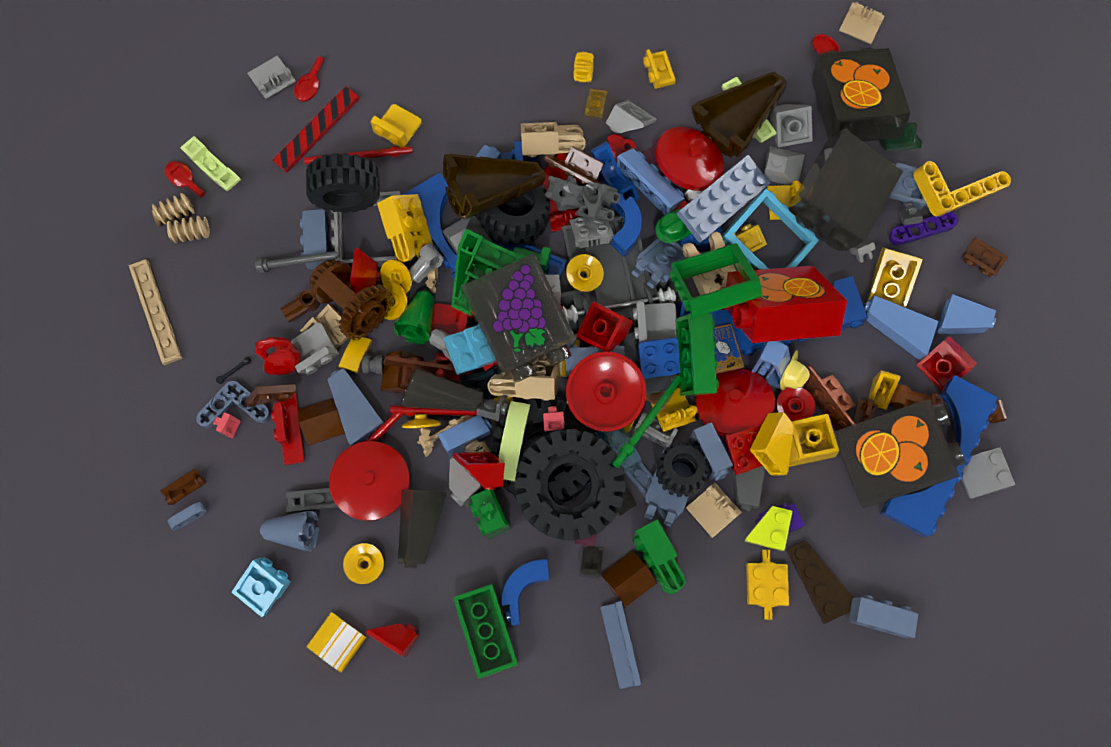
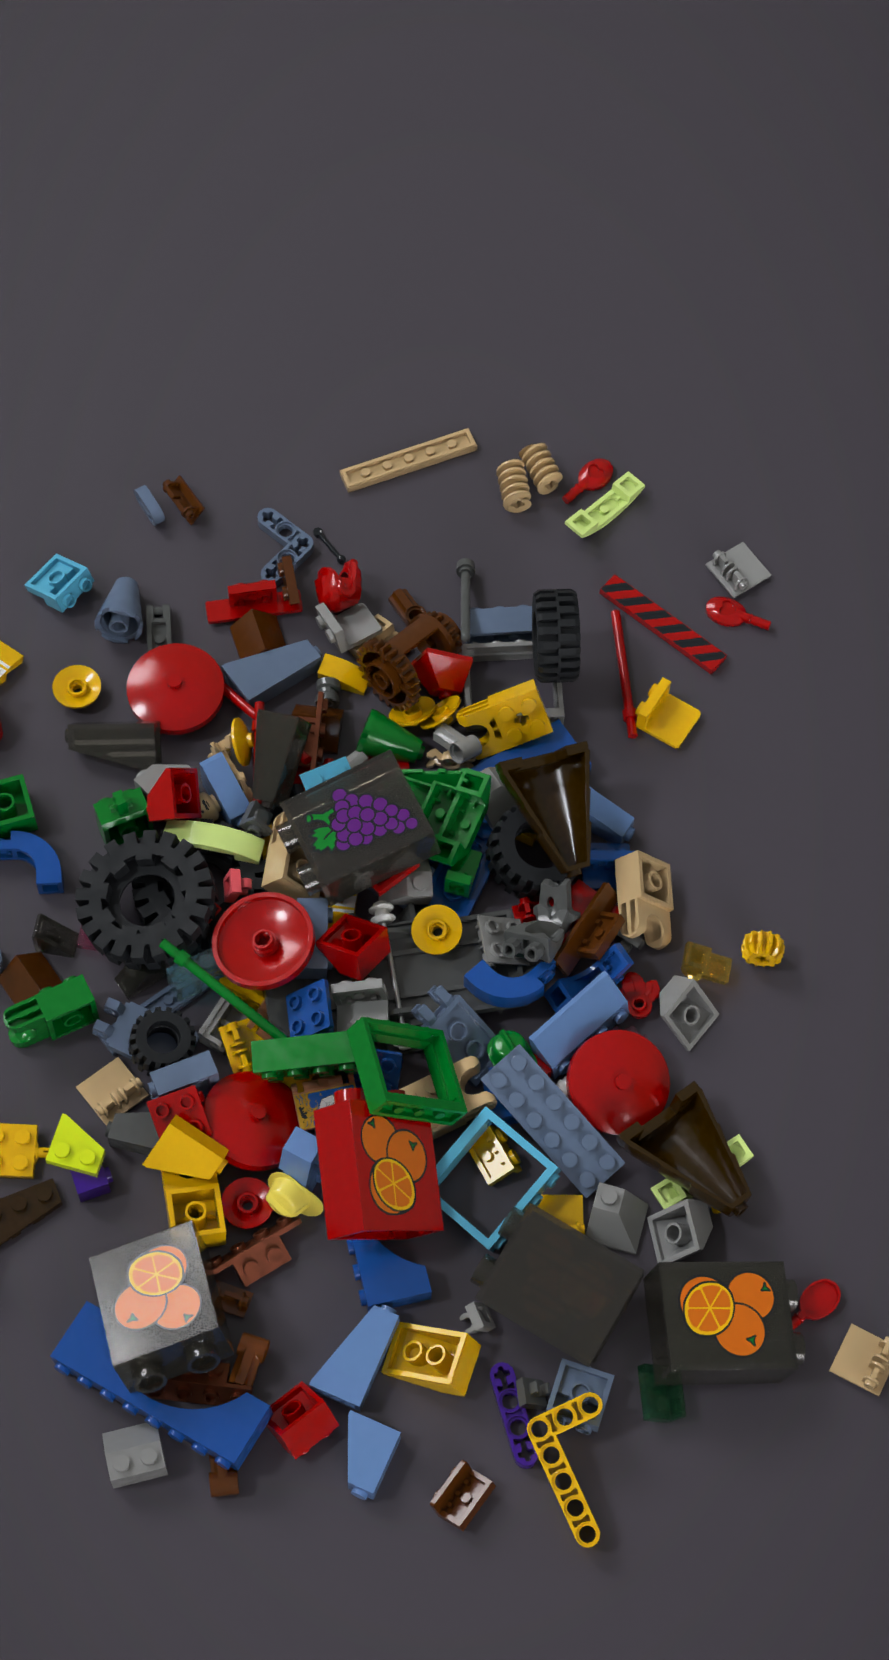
camera: 90 degrees right, 10 degrees down
(227, 425) = (256, 539): coral tile -> none
(659, 69) = (768, 1052): yellow bracket -> none
(883, 388) = (264, 1322): yellow slope -> none

